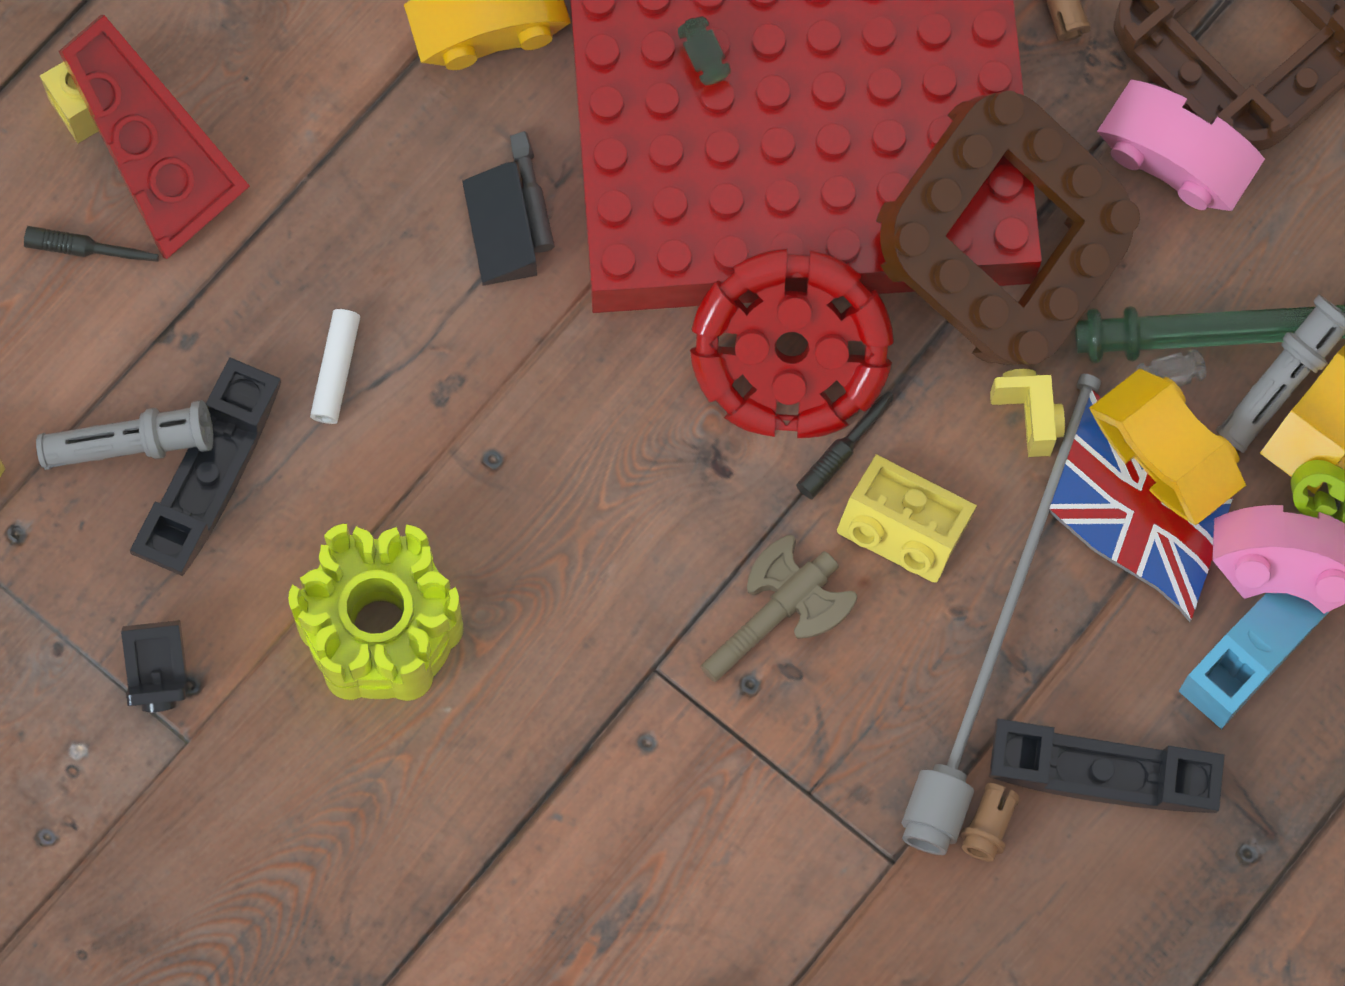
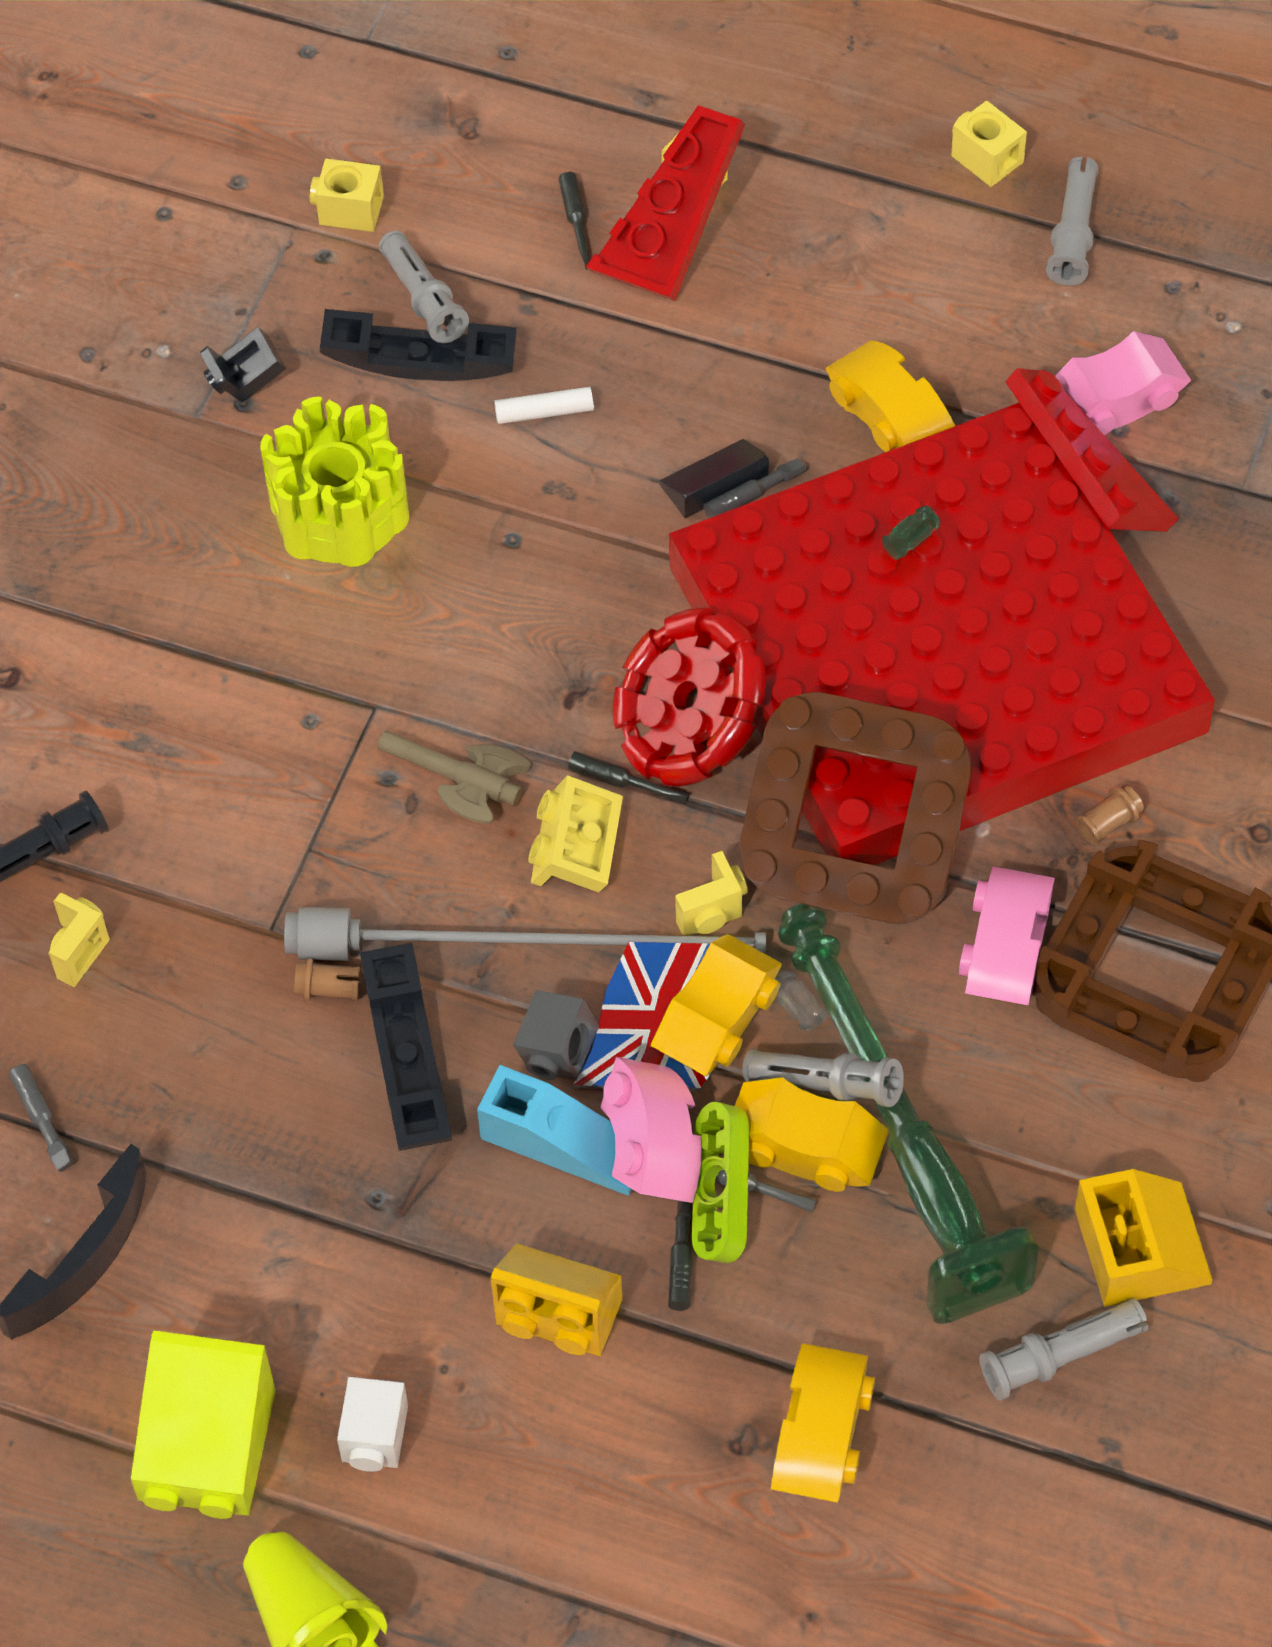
camera: 75 degrees right, 15 degrees down
(1146, 615) = (555, 1035): none -> dark grey brick

